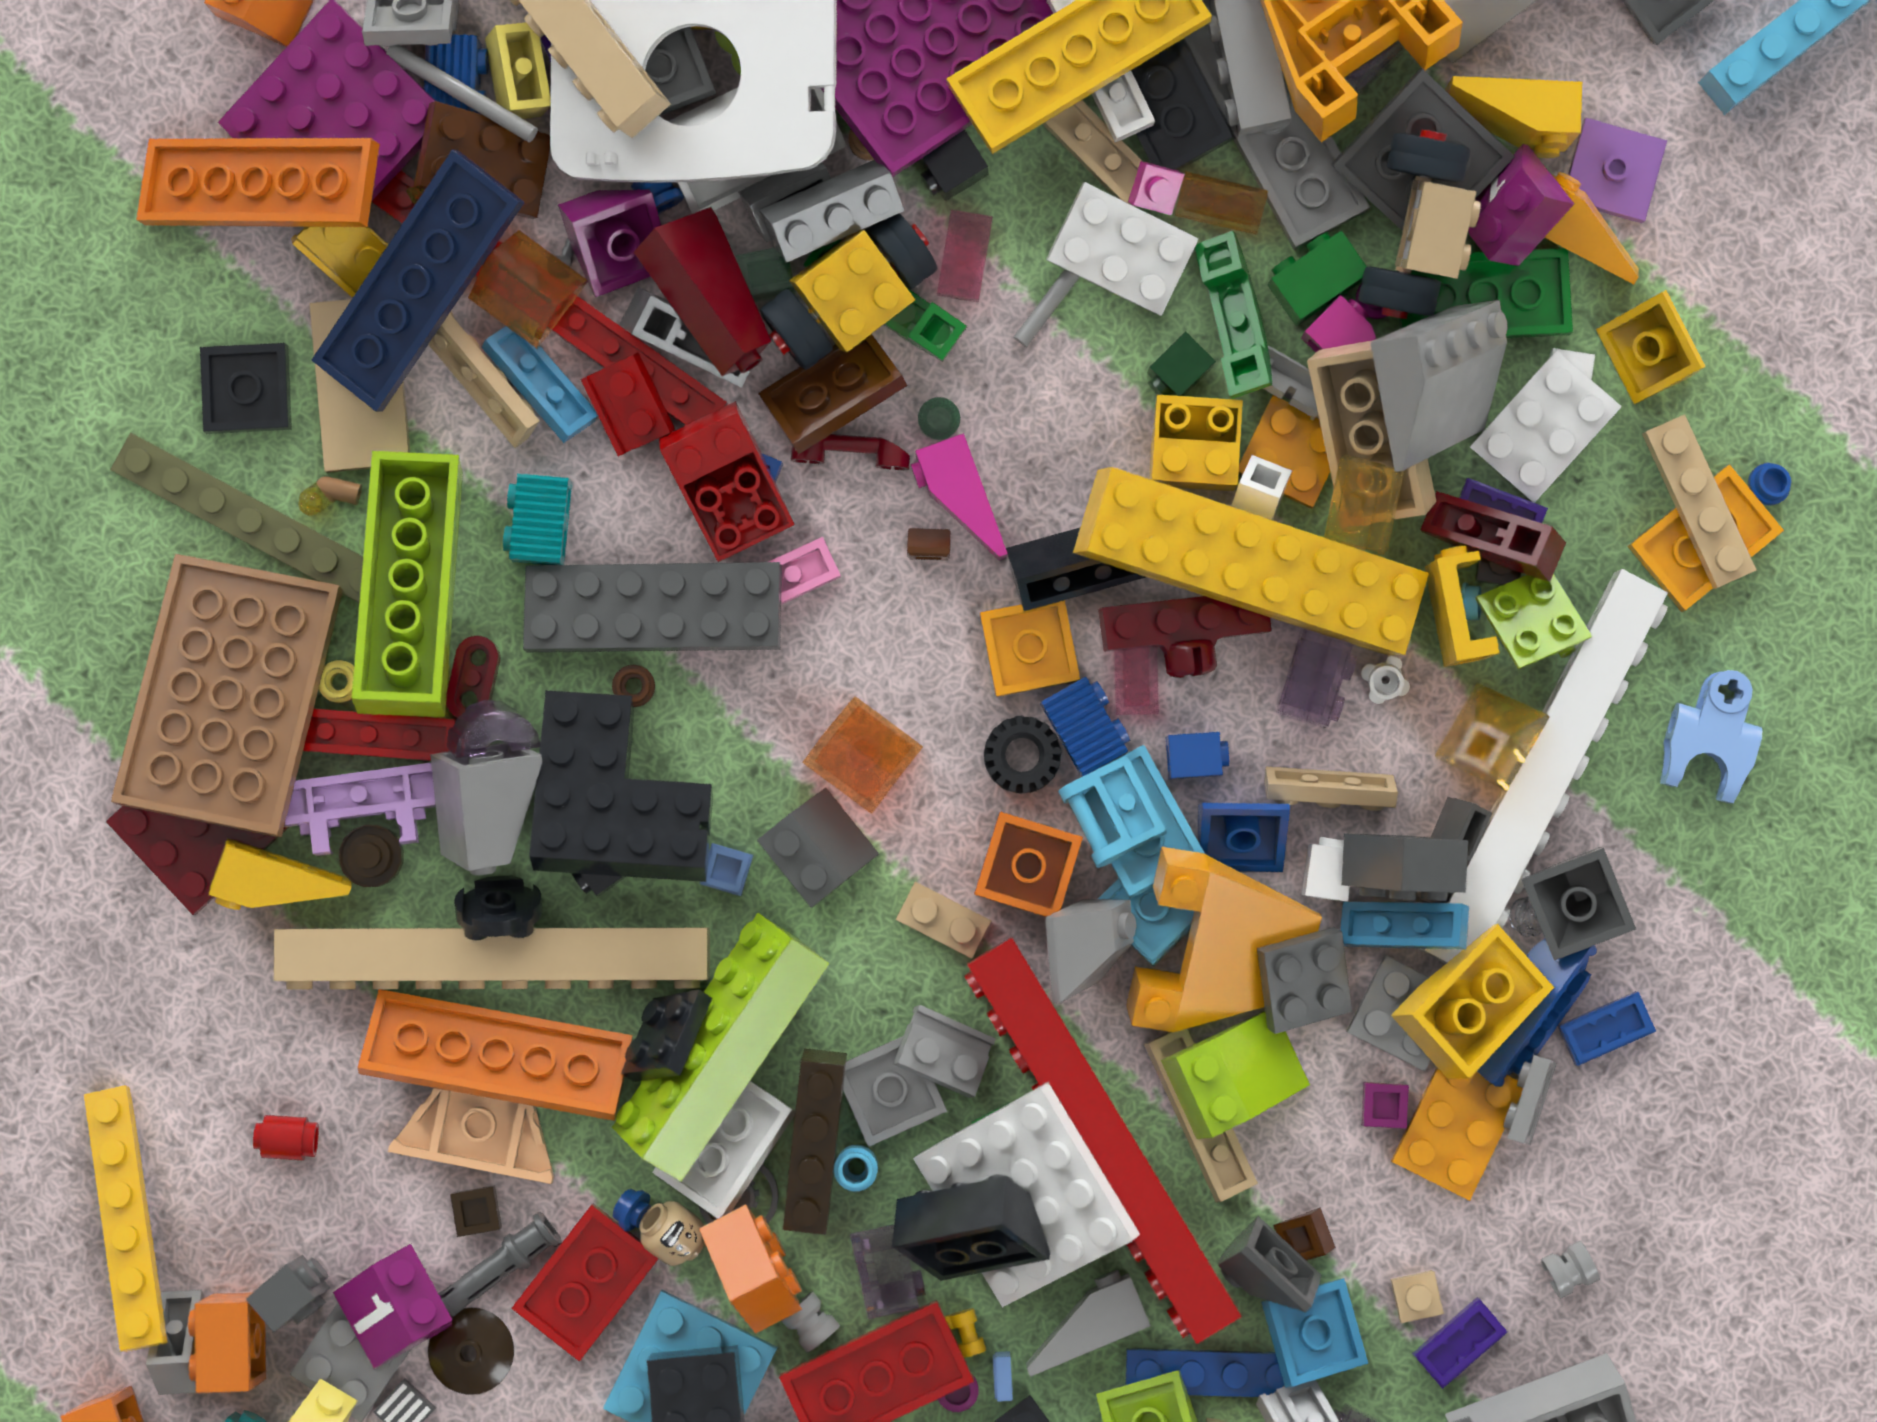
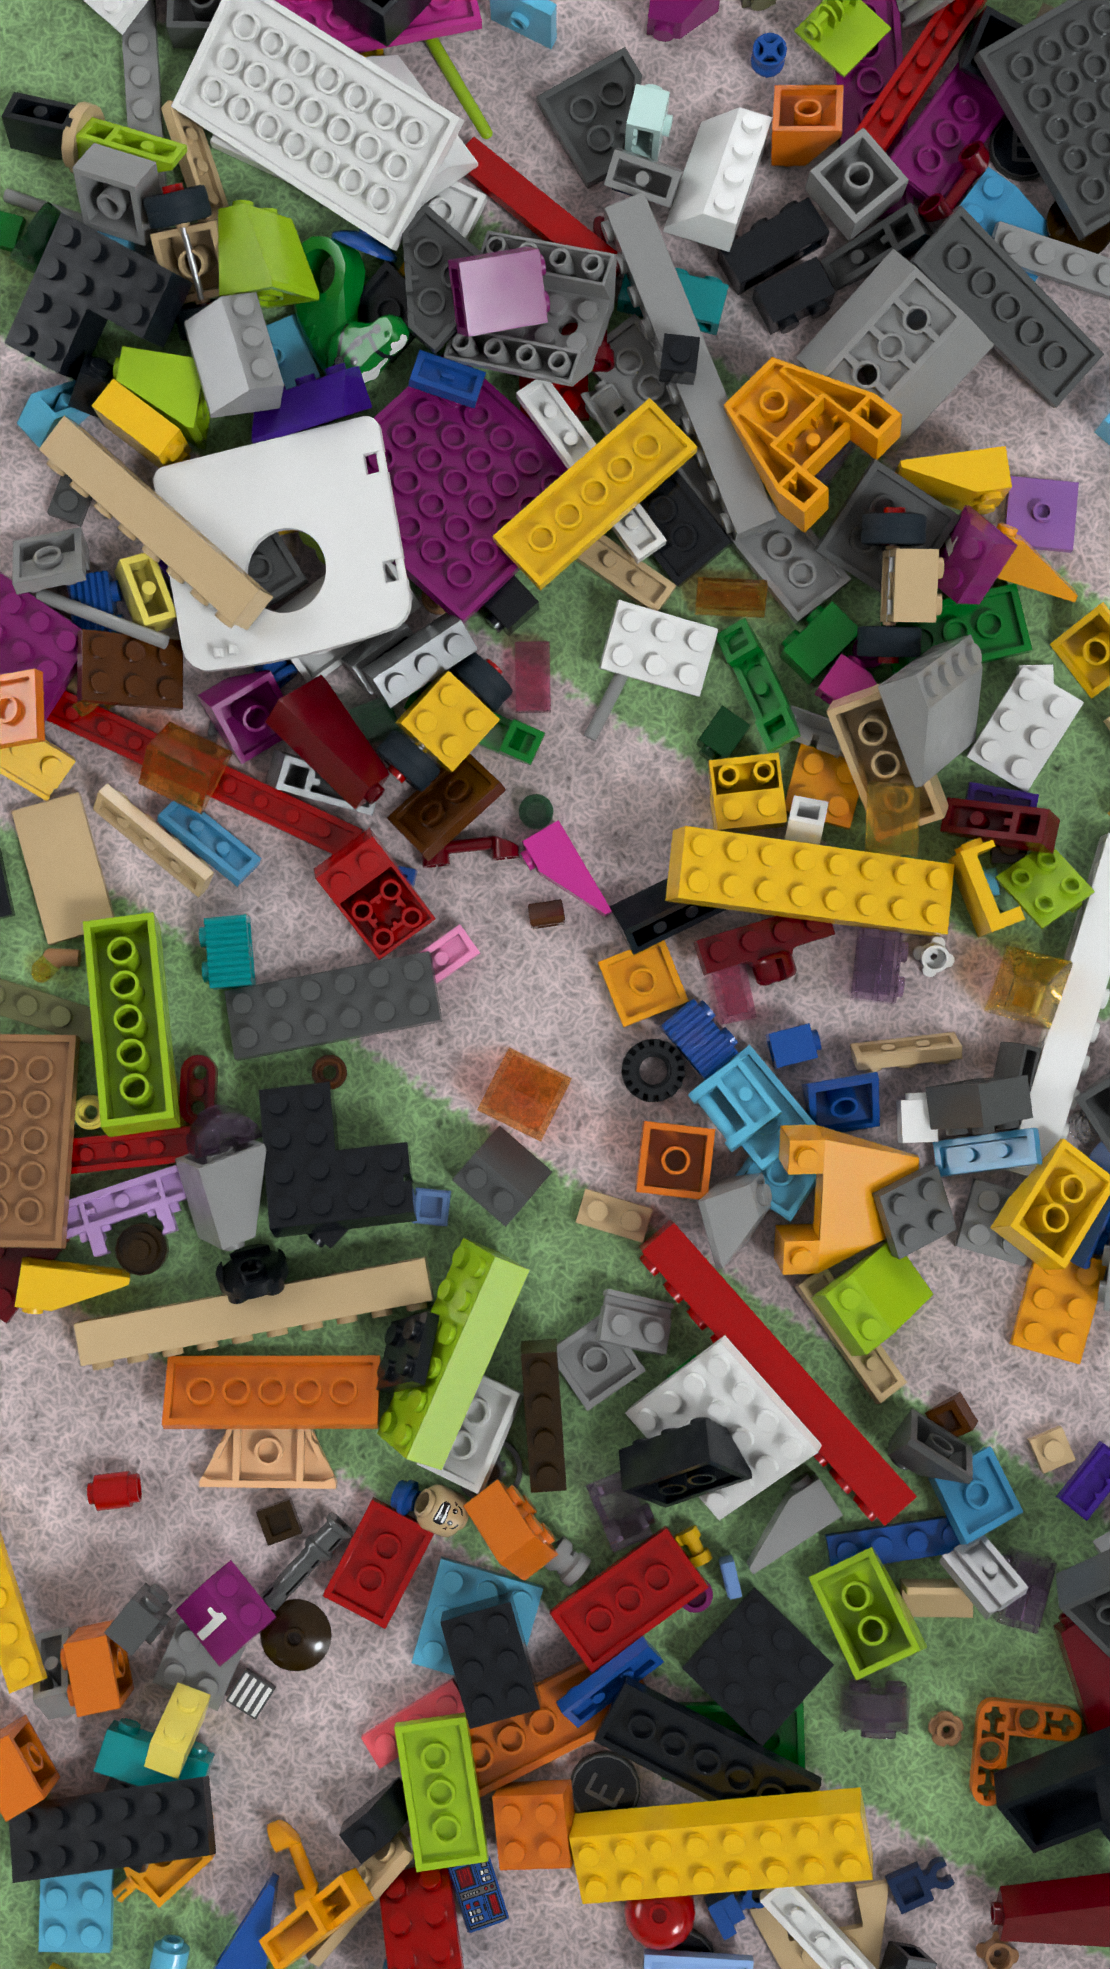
camera: 10 degrees left, 0 degrees up
(417, 280) = (94, 777): dark blue plate -> none
(628, 404) = (283, 846): red plate -> none
(852, 1181) = (580, 1441): medium azure brick -> none
(1156, 188) = (676, 594): plate -> none
(1385, 1105) = (997, 1299): magenta plate -> none

